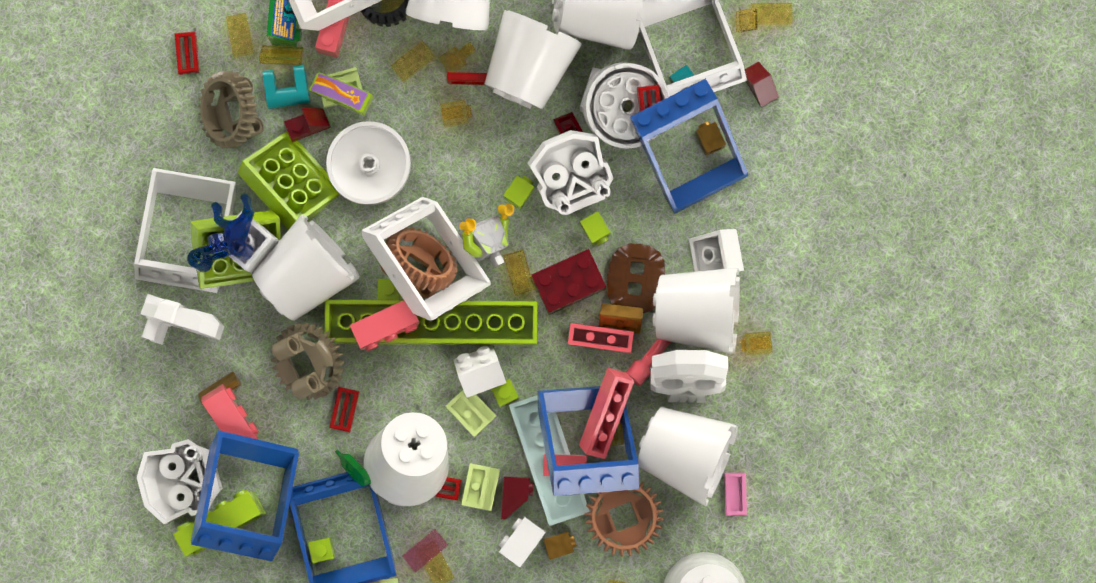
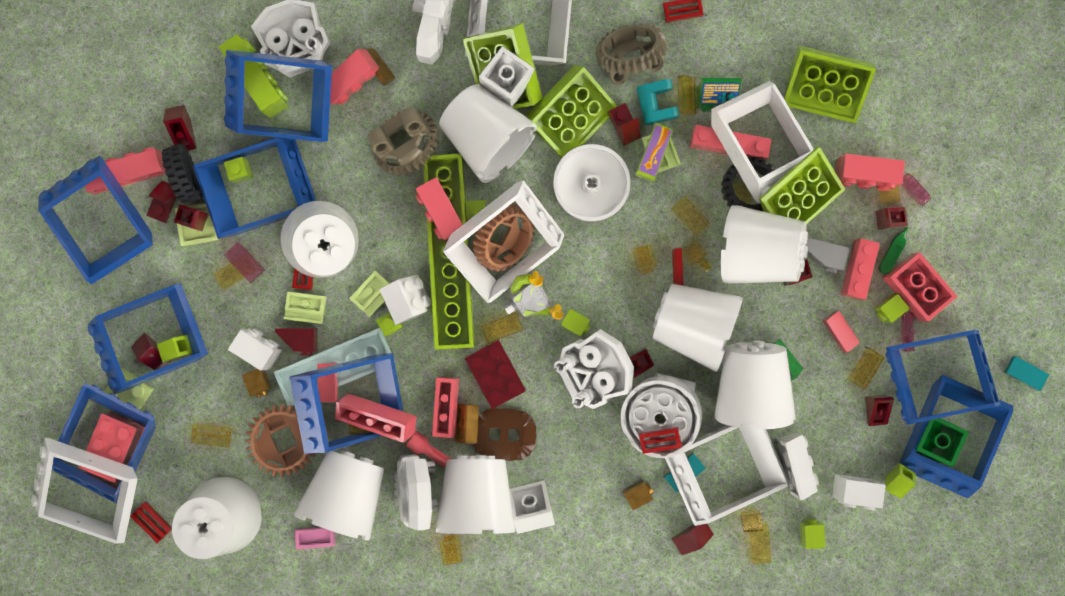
camera: 80 degrees right, 5 degrees up
(226, 243) = (503, 59): clear blue piece -> none
(240, 35) = (703, 56): clear yellow tile -> none
(352, 411) = (383, 182): red tile -> none
(354, 469) = (311, 192): green piece -> none
(595, 229) = (546, 395): lime brick -> none
(672, 112) = (654, 460): blue window -> none

